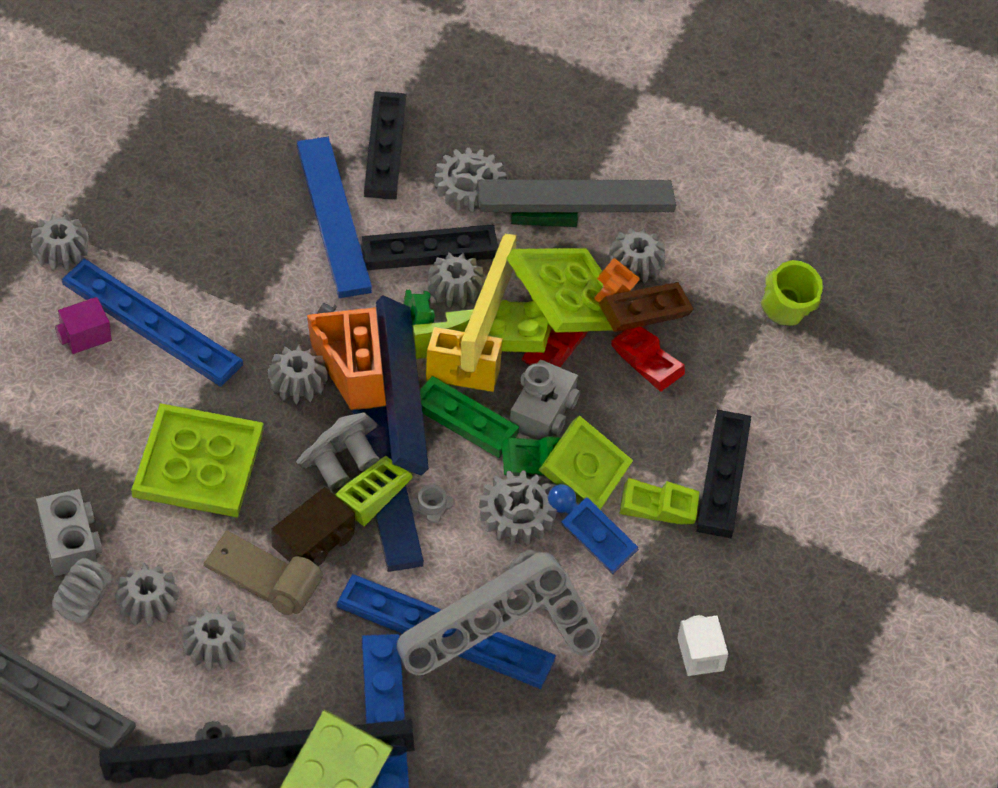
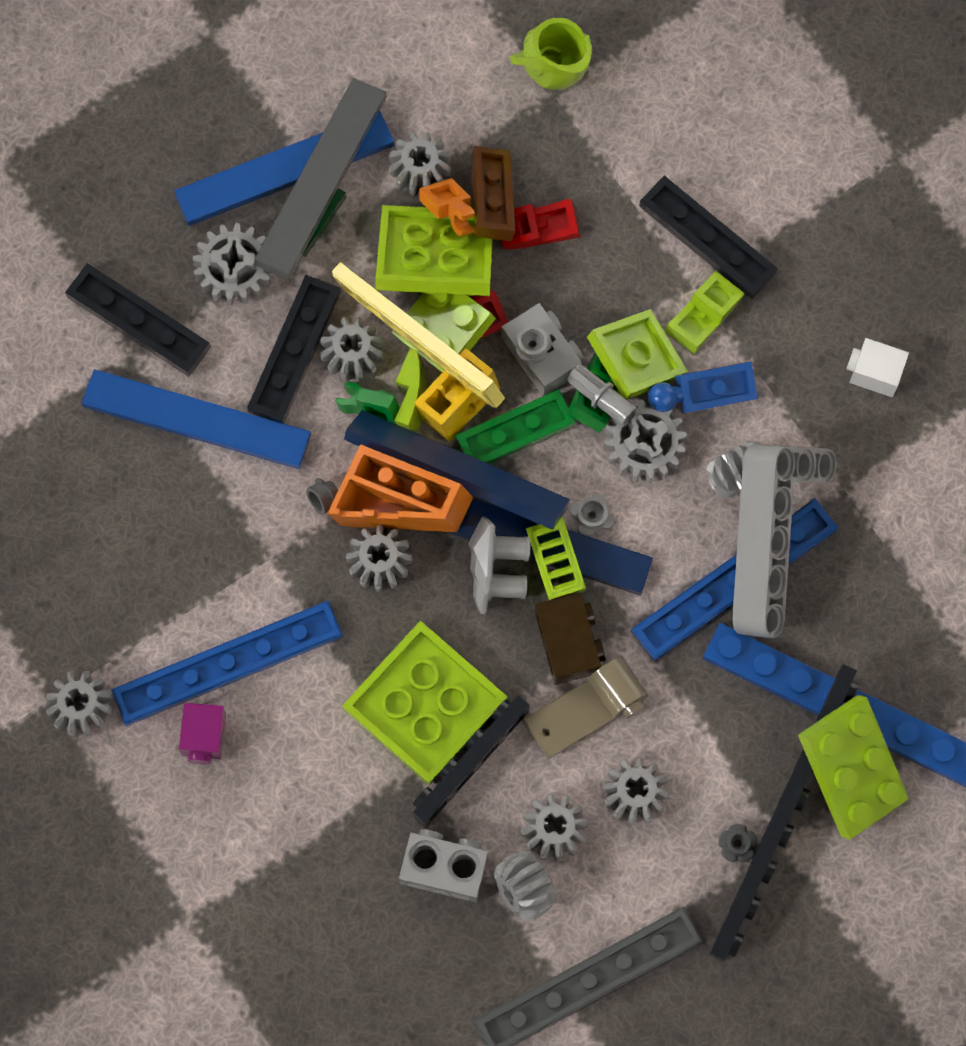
camera: 55 degrees left, 20 degrees up
(166, 510) = (480, 747): none -> black plate
(531, 452) = (602, 394): none -> light grey axle
(550, 165) = (264, 176): none -> blue tile

